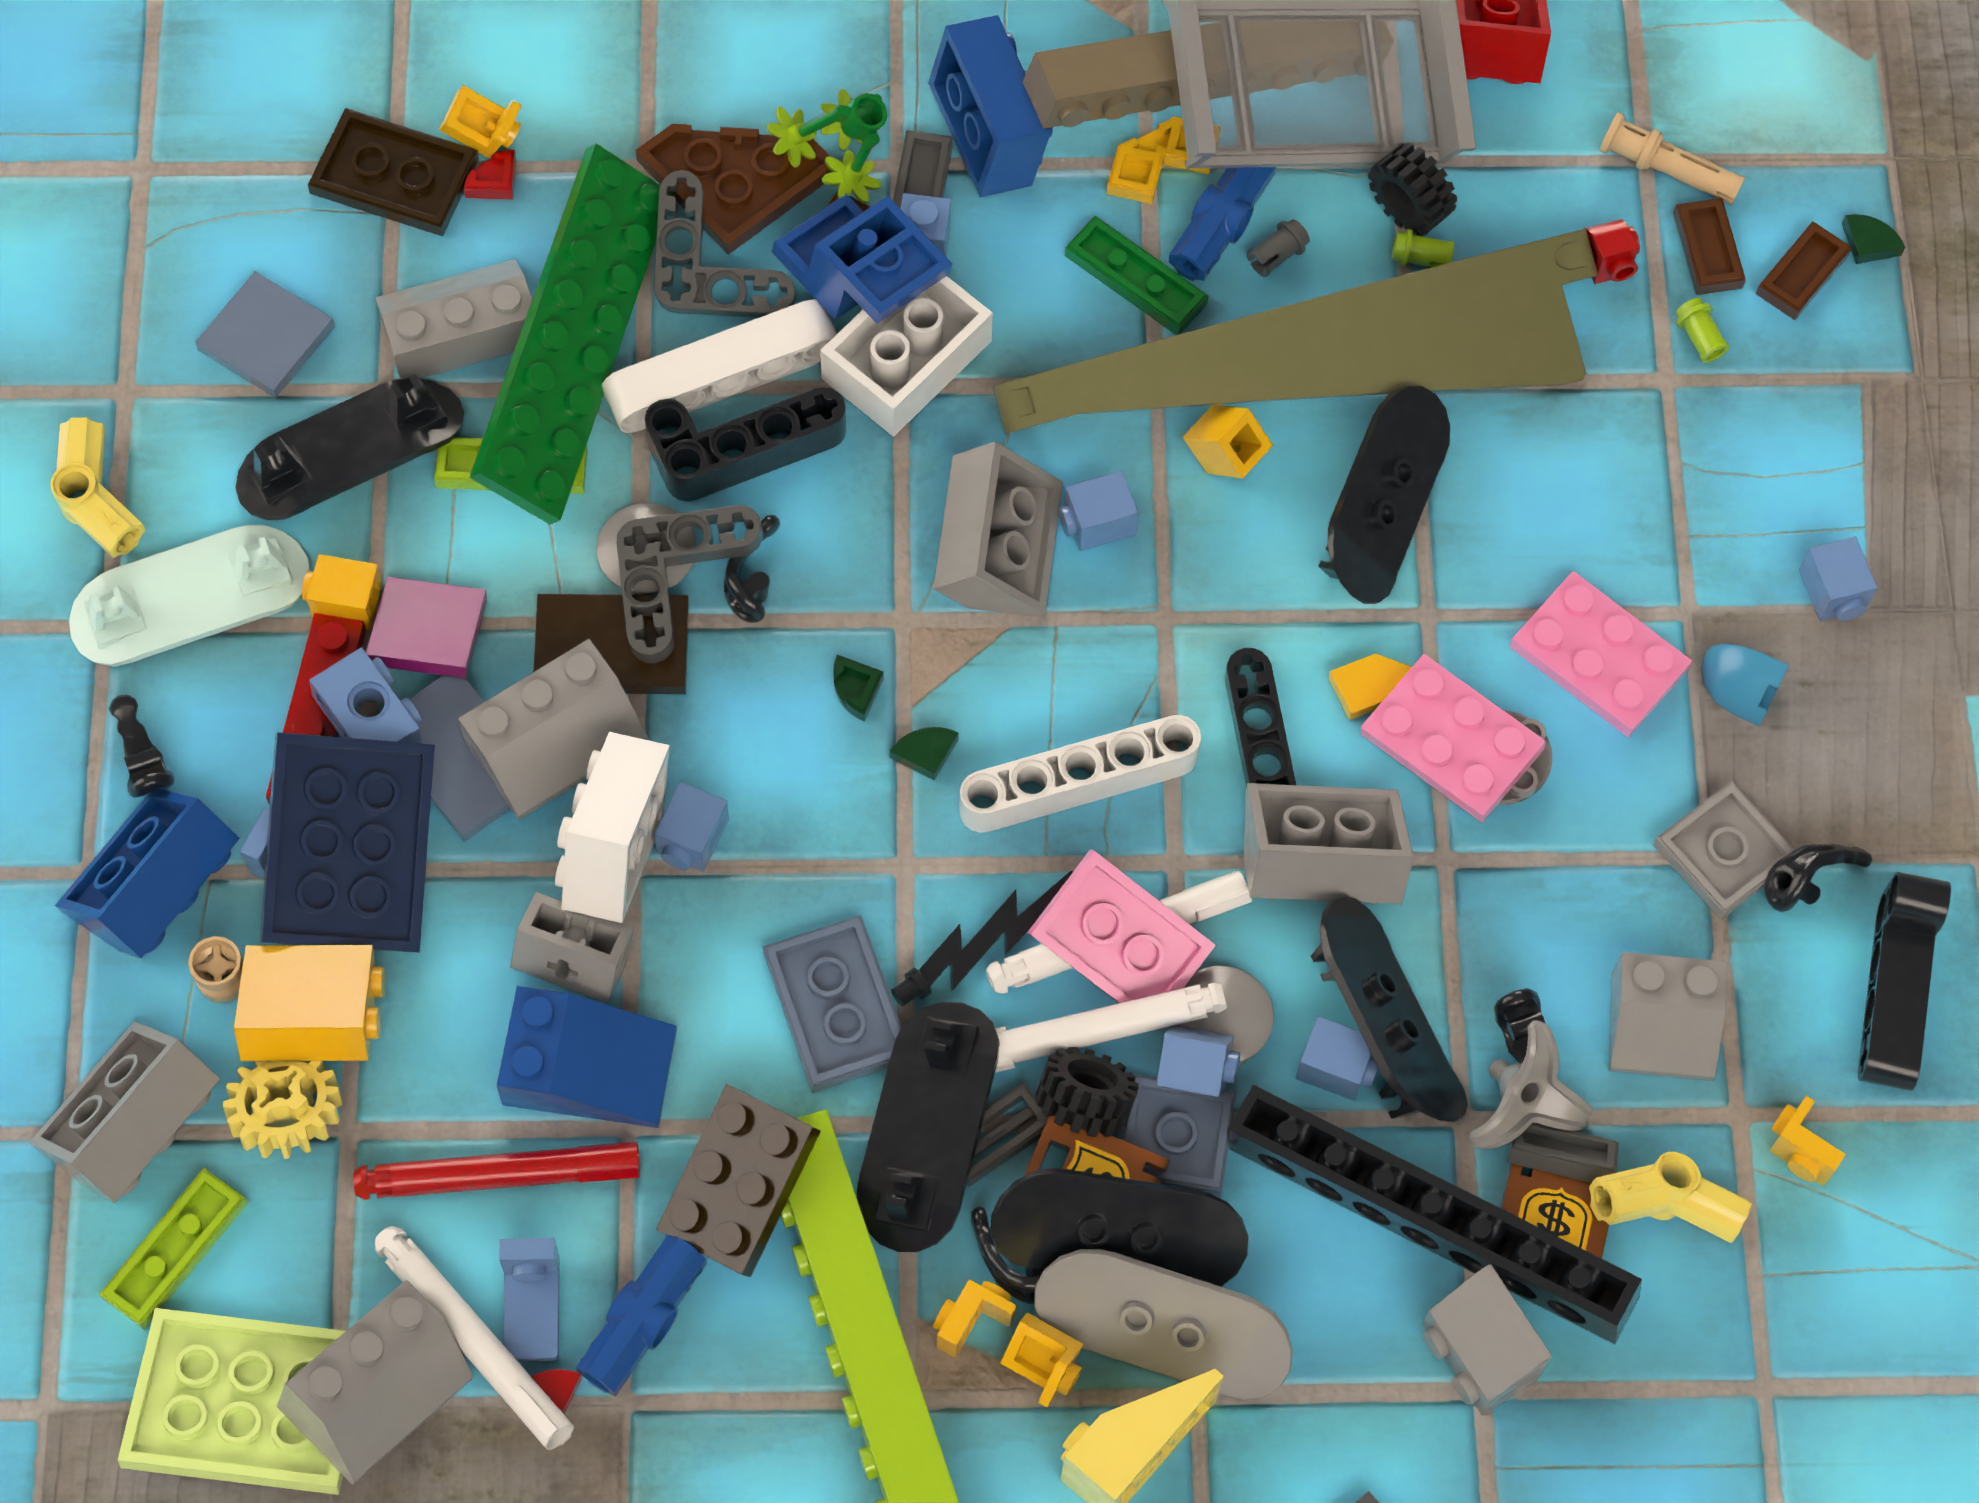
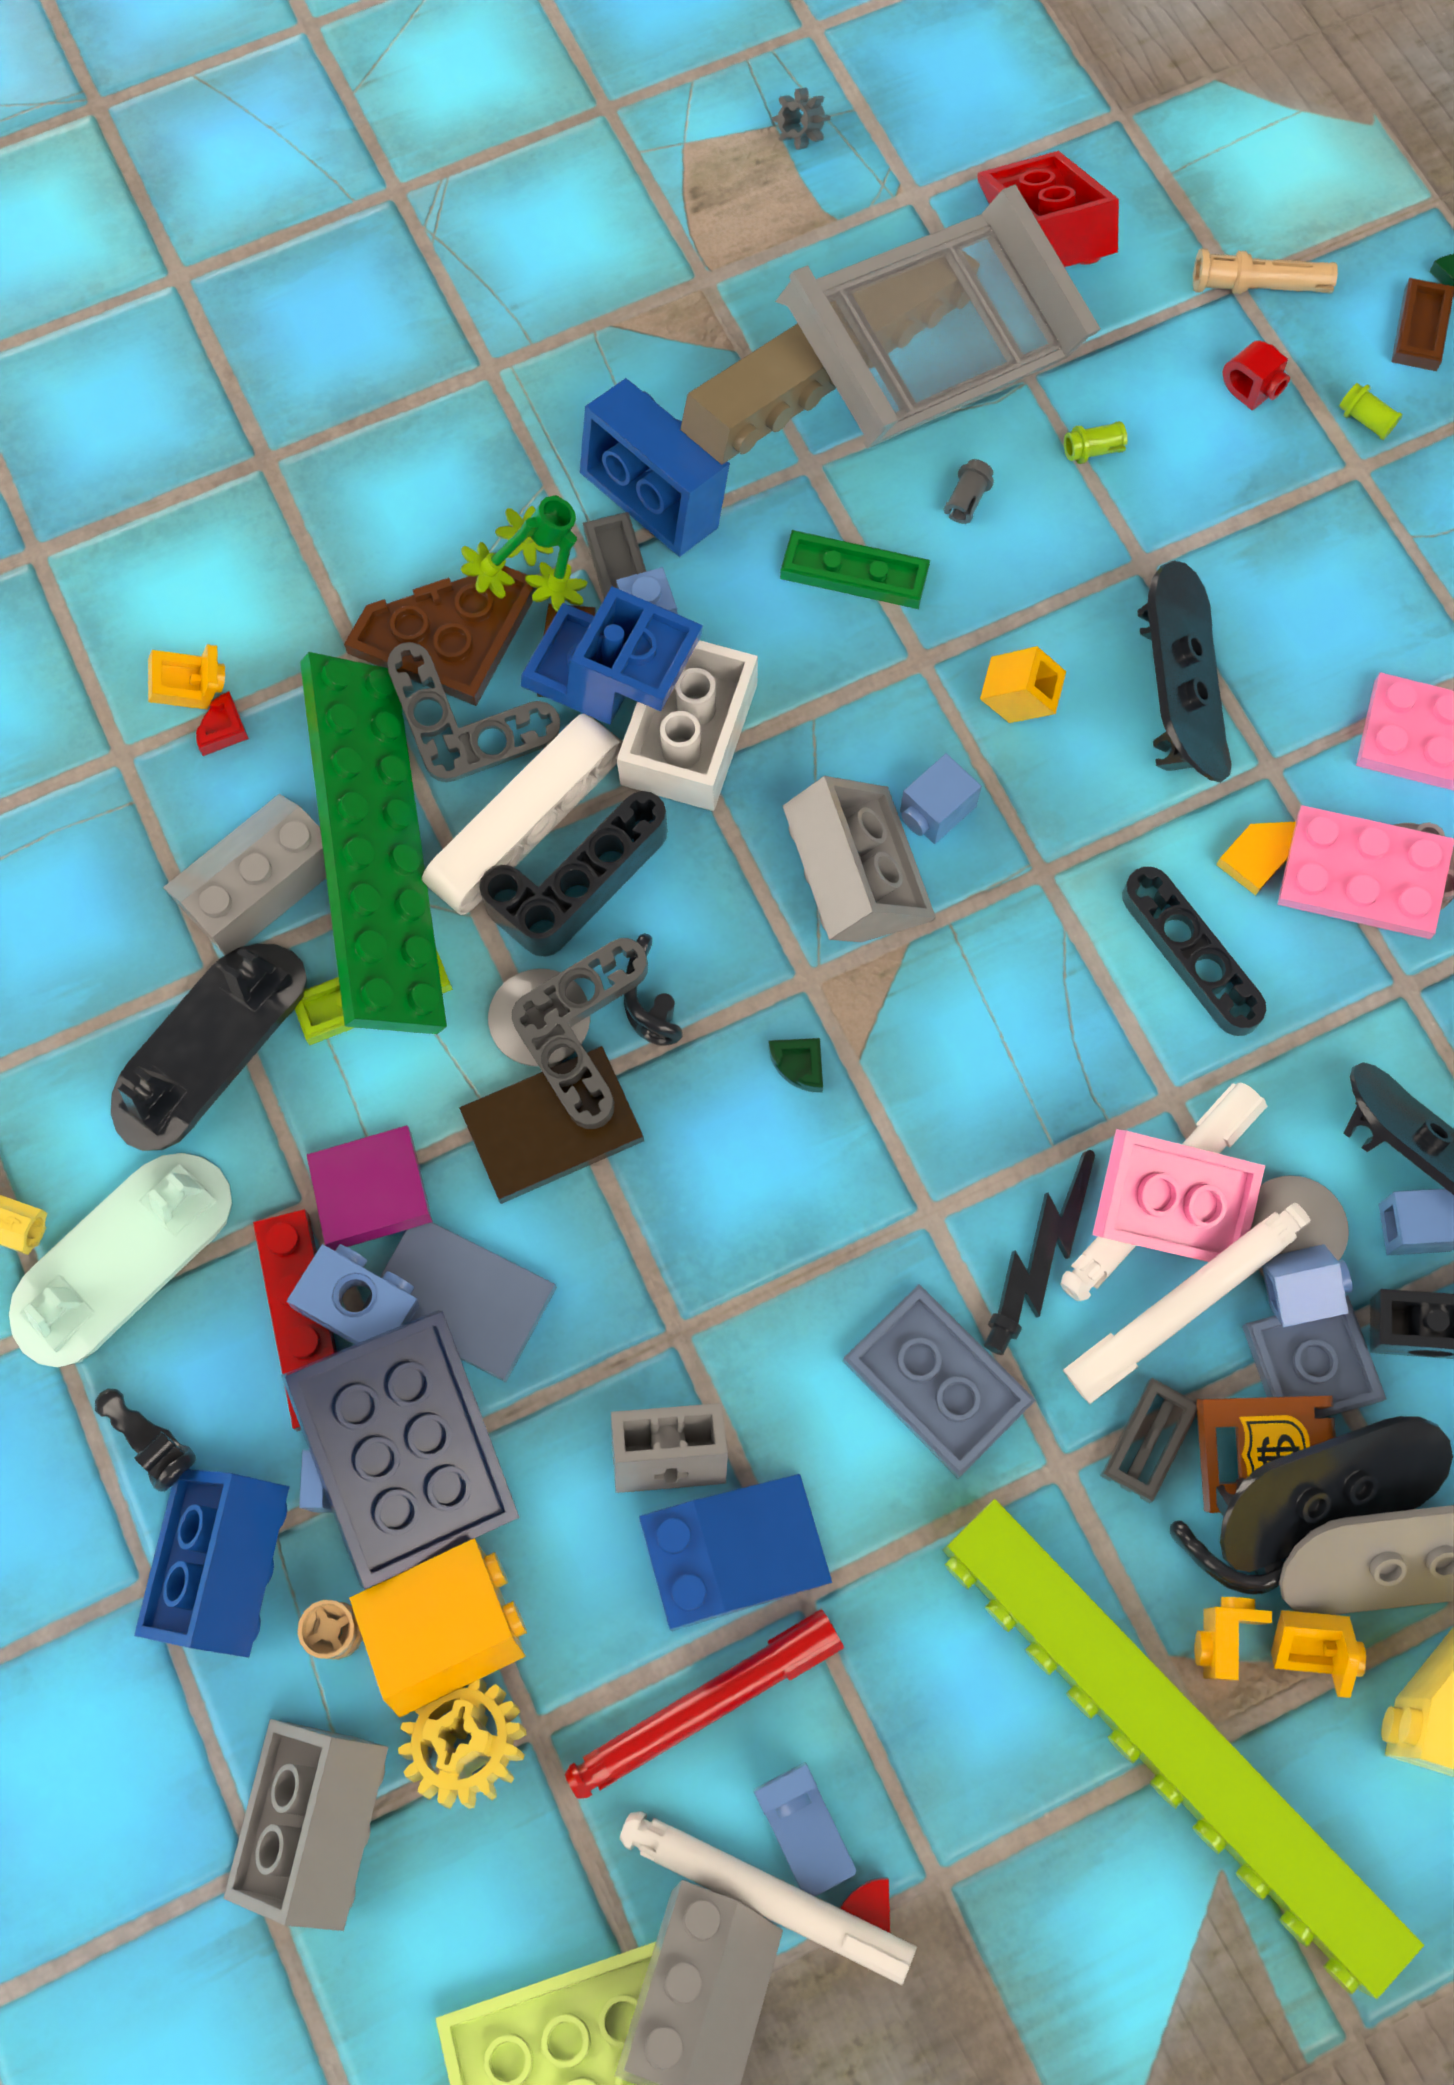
camera: 20 degrees left, 5 degrees up
(173, 1248) = (422, 1942): lime tile -> none
(265, 334) = (73, 968): sand blue tile -> none
(343, 589) = (270, 1187): yellow brick -> none
(393, 172) = (122, 760): dark brown tile -> none
(545, 727) = (543, 1238): light grey slope -> none
(612, 826) = (655, 1313): white brick -> none
(641, 1315) = (917, 1790): blue piece -> none
(691, 828) = (719, 1273): medium blue brick -> none
(738, 1180) = (946, 1611): plate -> none
(925, 750) = (895, 1095): dark green tile -> none
(927, 1126) = (1090, 1464): black piece -> none
(1086, 1092) = (1225, 1365): black tyre -> none
(1095, 755) = (1063, 1035): white beam -> none
(1141, 160) = (805, 463): yellow tile -> none
(1219, 220) = (905, 489): blue piece -> none
(1325, 843) = (1310, 1022): light grey slope -> none
(1412, 189) = (1064, 387): black tyre -> none
(1439, 328) = (1154, 505): olive panel -> none
(1709, 246) = (1333, 336): reddish brown tile -> none

